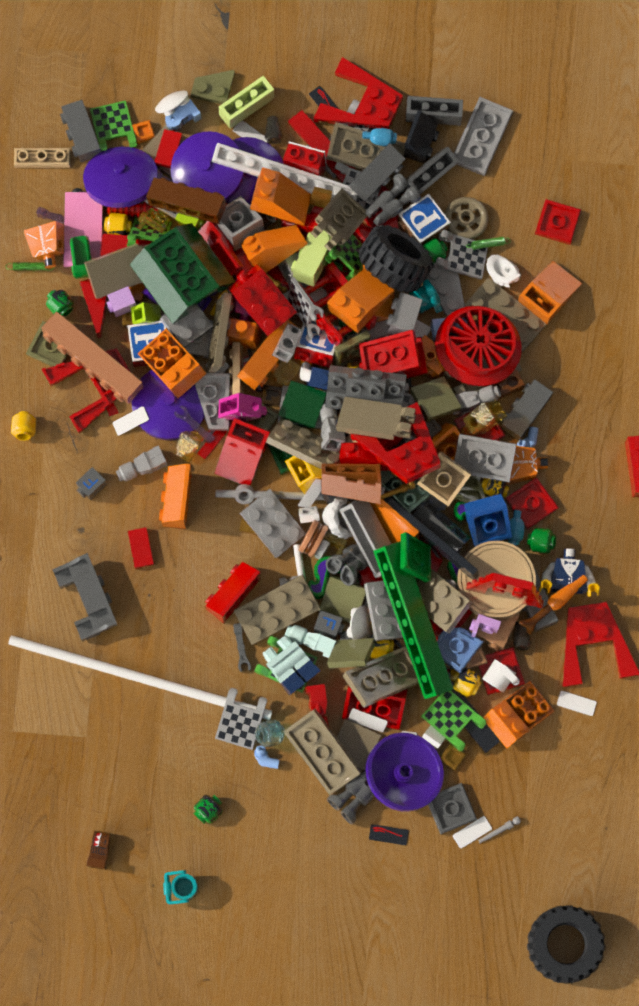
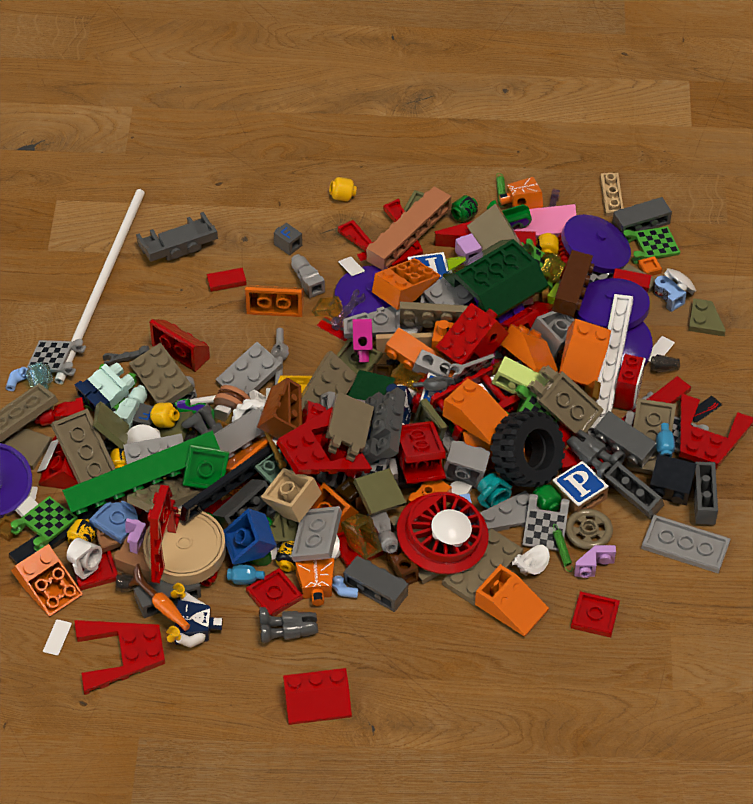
camera: 90 degrees right, 25 degrees down
(242, 452) = (315, 342): slope -> none
(246, 102) = (690, 337): yellowish green brick -> none
(317, 340) = (436, 383): none -> dark grey hand
(335, 602) = (164, 415): none -> yellow head
(487, 332) = (451, 527): none -> white dish
(506, 221) = (602, 554): none -> lavender slope
(541, 540) = (232, 598): green head -> none
(571, 486) = (293, 622): none -> dark grey piece

